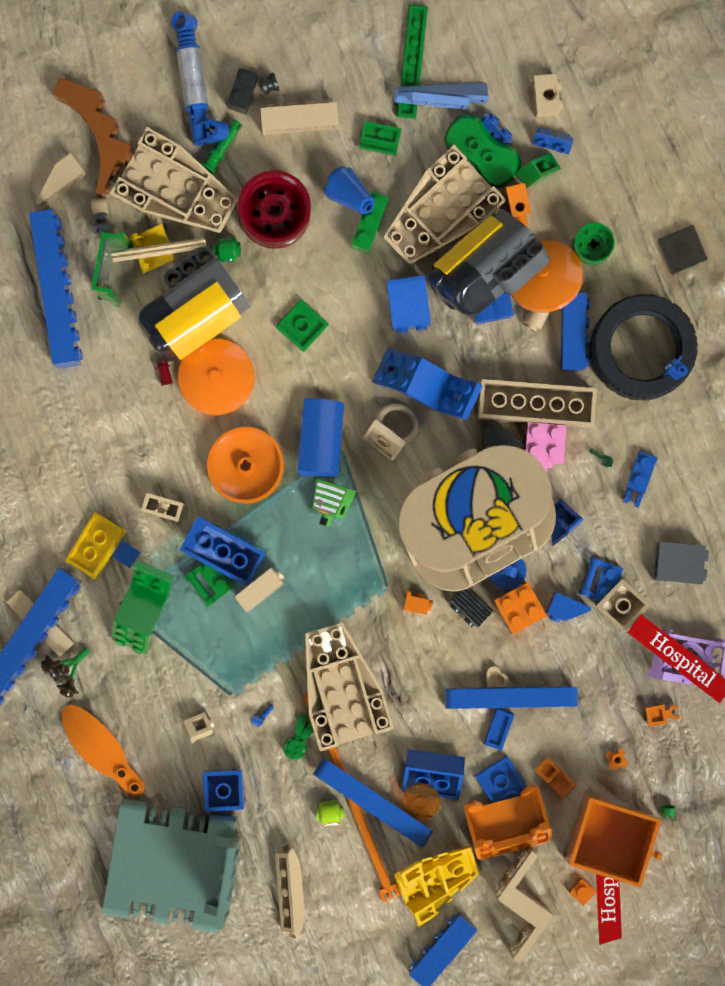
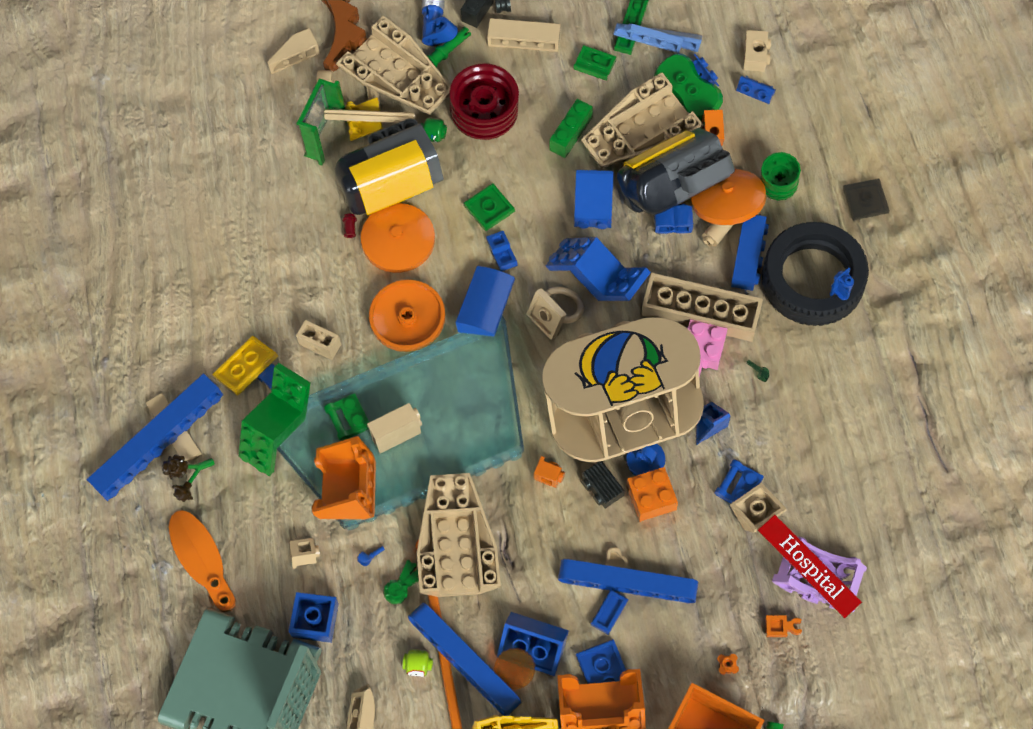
camera: 15 degrees right, 20 degrees down
(55, 289) = (266, 136): blue brick -> none
(223, 550) = (367, 384): blue slope -> none
(225, 654) = (346, 481): none -> orange windscreen
(325, 373) = (501, 251): none -> blue slope
(331, 501) = (484, 359): bright green torso -> none
(348, 190) = (555, 94): blue cone -> none
(538, 170) = (738, 109): green slope -> none
(555, 777) = (660, 671): orange slope -> none
(565, 608) = (699, 503): blue slope -> none
(640, 476) = (794, 393): blue hinge -> none
(681, 563) = (824, 480): dark grey brick -> none

